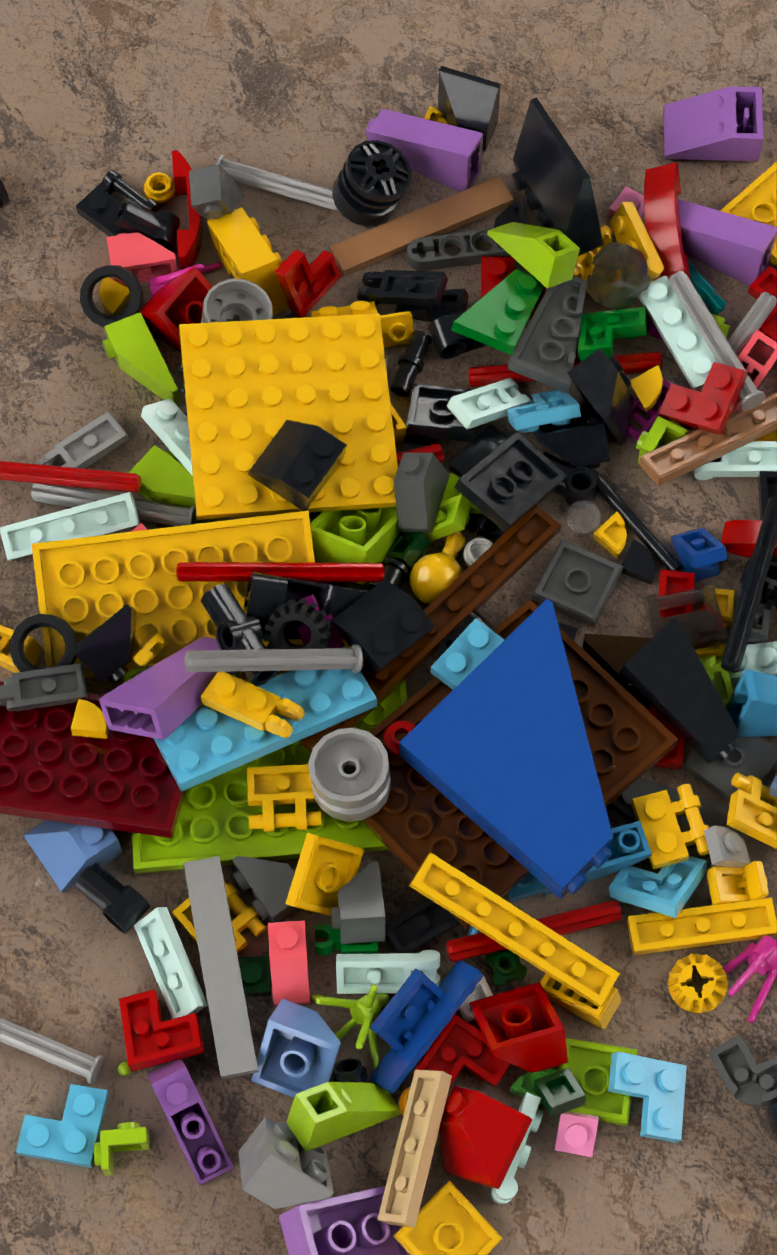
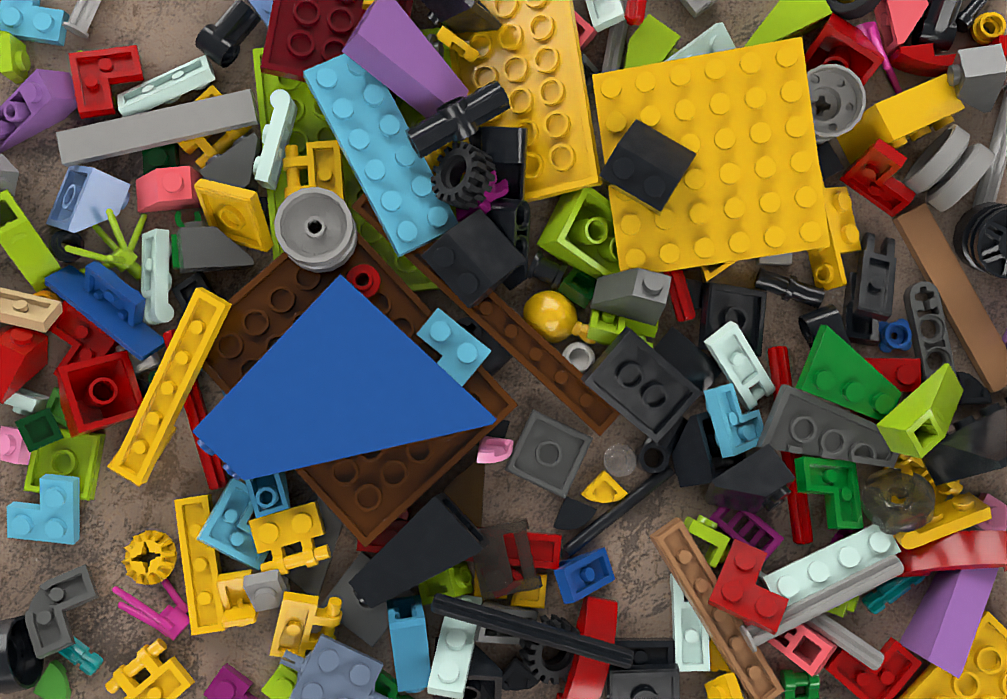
camera: 90 degrees right, 20 degrees up
(243, 834) = (275, 138): none -> light aqua plate
(251, 704) = (385, 131): yellow hinge -> none
(274, 659) = (418, 145): light grey axle -> none
(301, 221) = (948, 168): none -> light grey wheel
(301, 571) = (536, 160): red axle -> none
(460, 270) = (903, 339): none -> blue plate
(576, 626) = (494, 449): none -> bright pink tile
(648, 387) = (765, 529): yellow tile -> none

